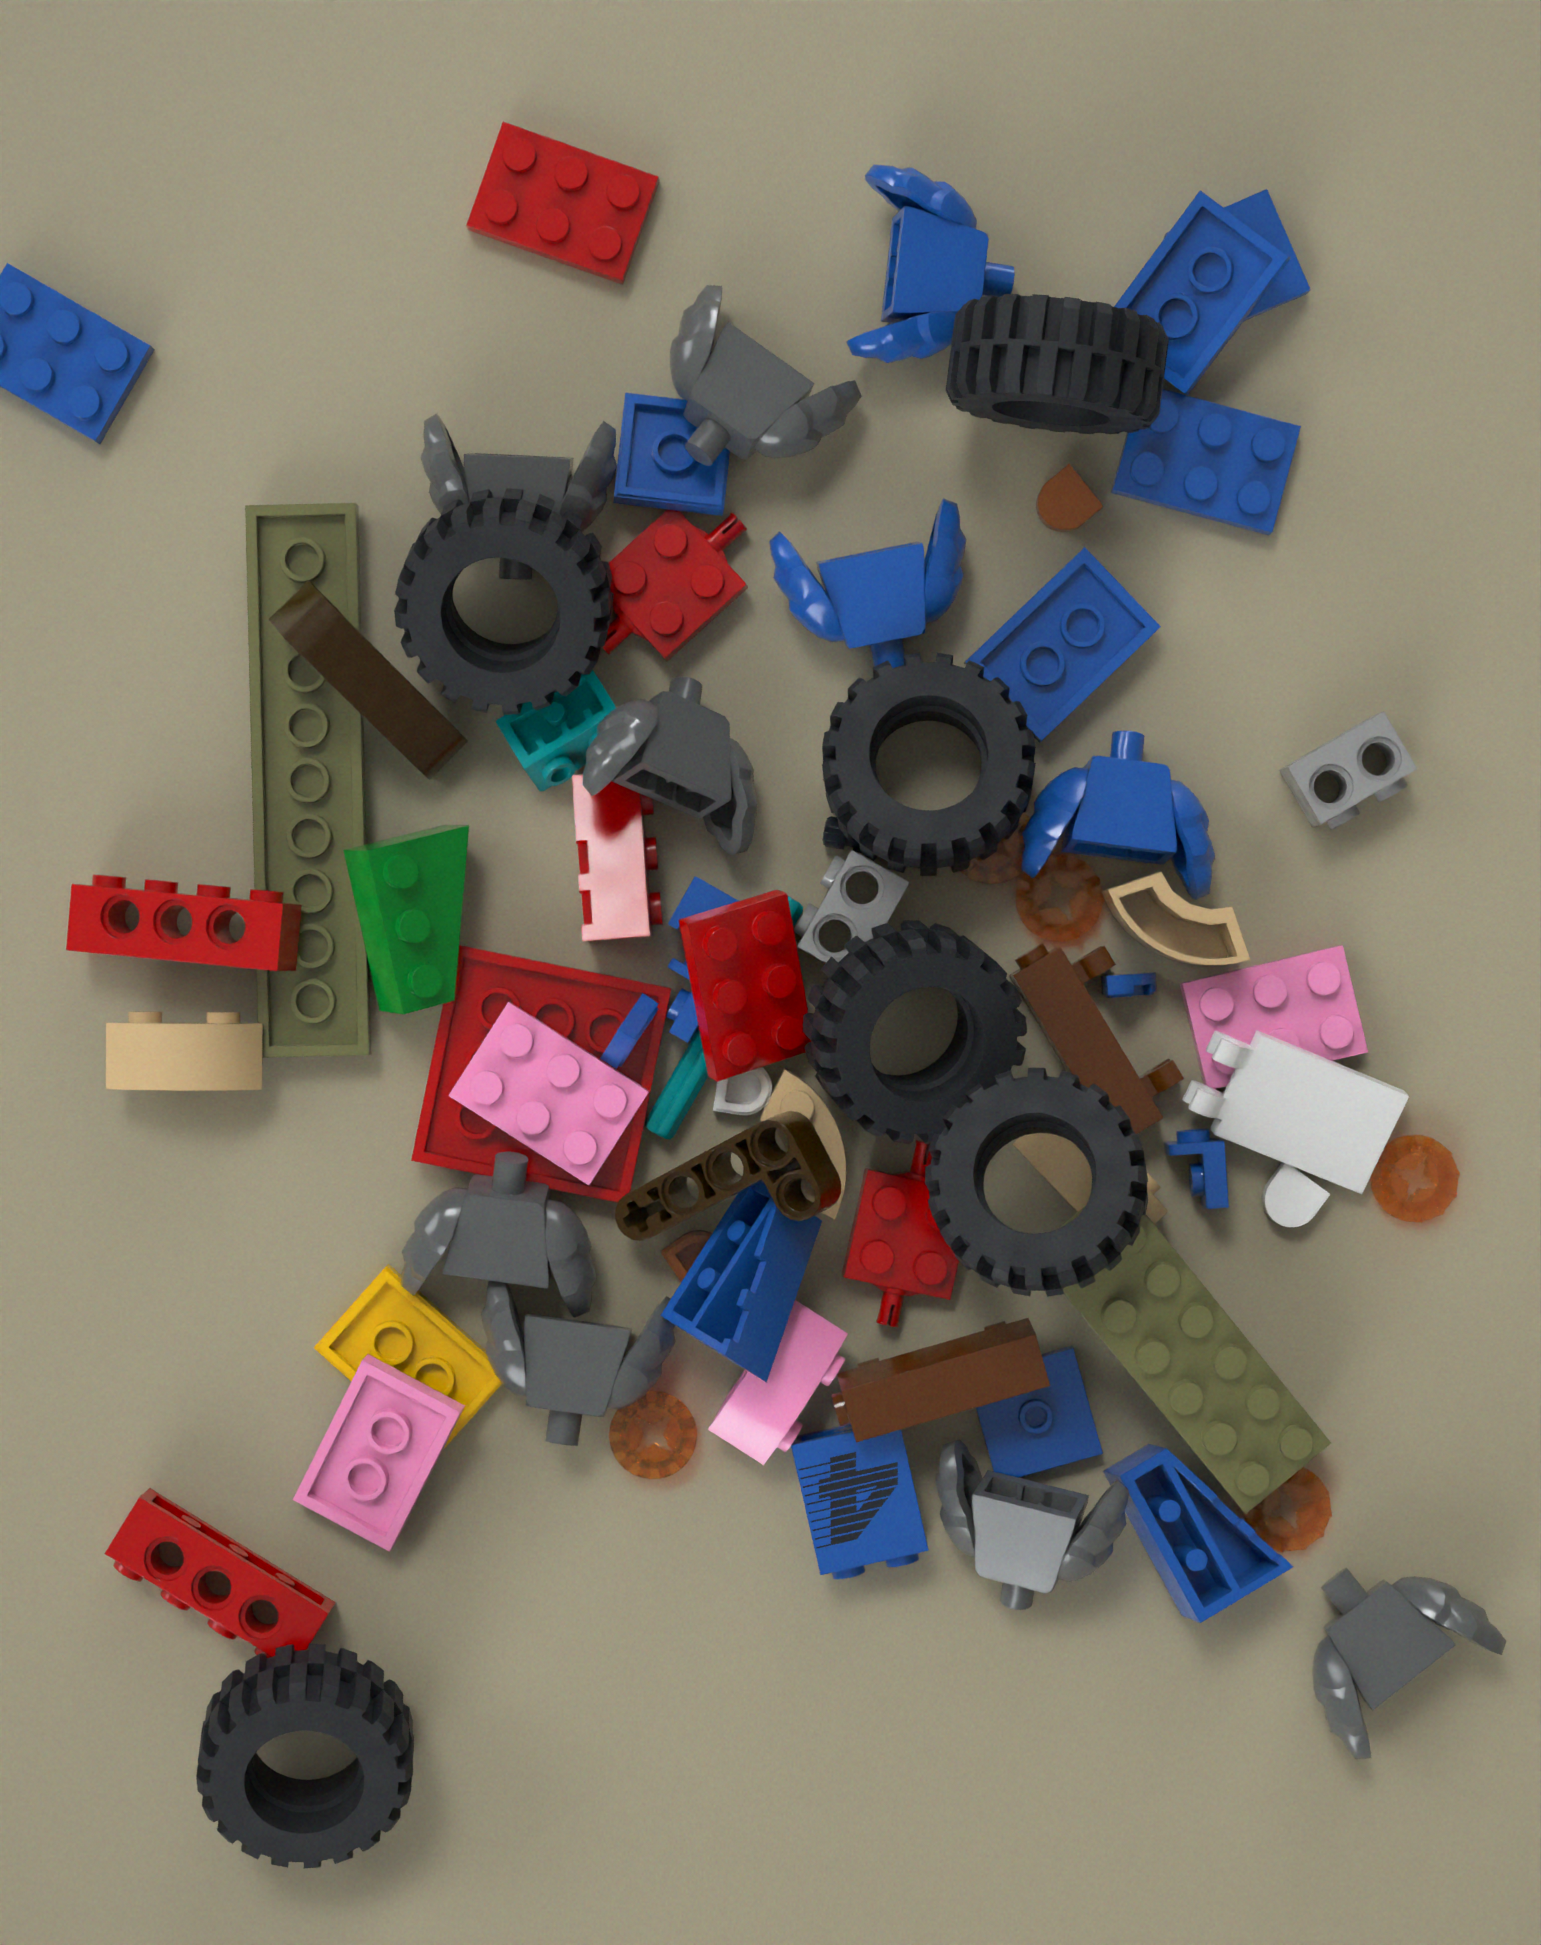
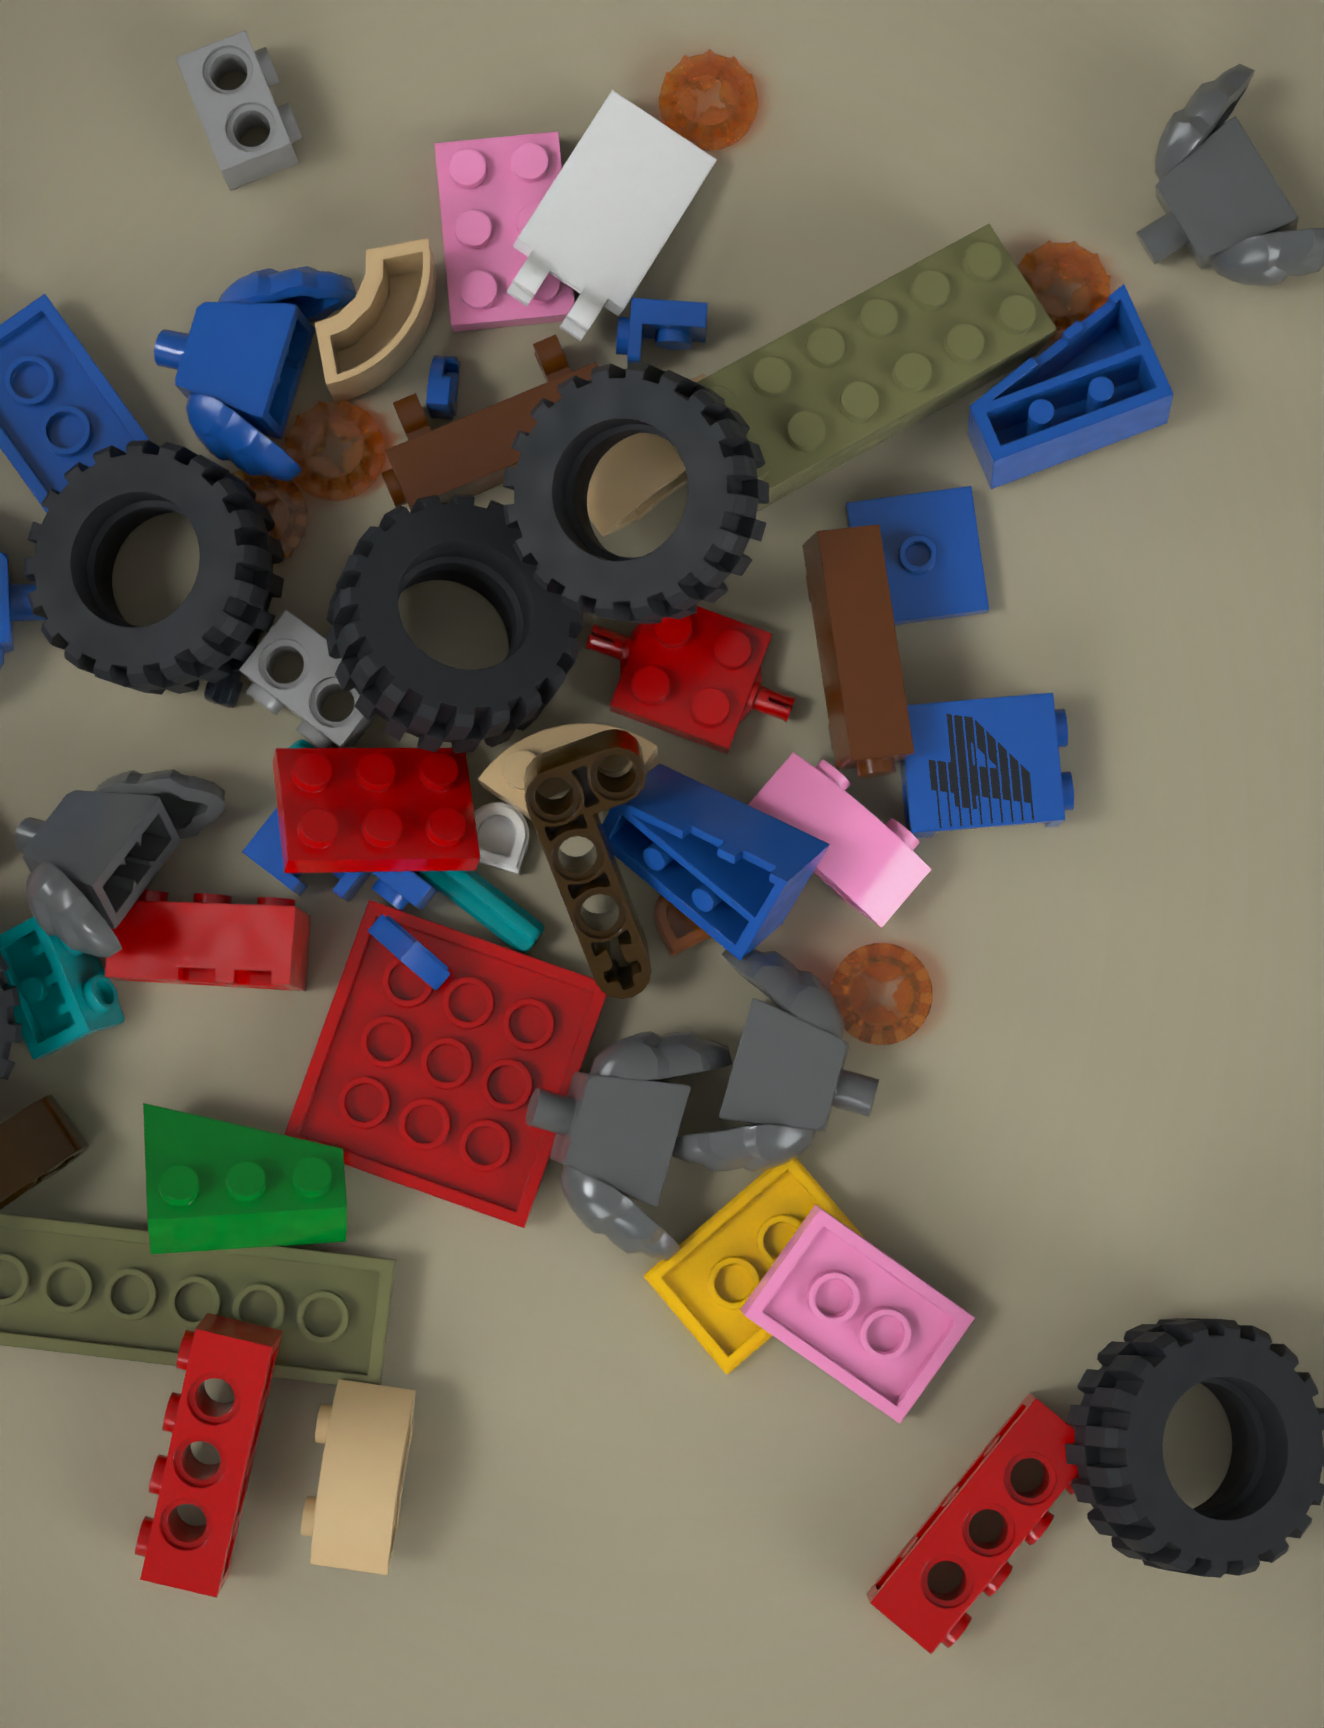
camera: 75 degrees left, 5 degrees down
(548, 1093) = (467, 1055): bright pink plate -> none
(1024, 1528) = (1043, 581): dark grey torso -> none
(1292, 1197) = (709, 238): white tile -> none

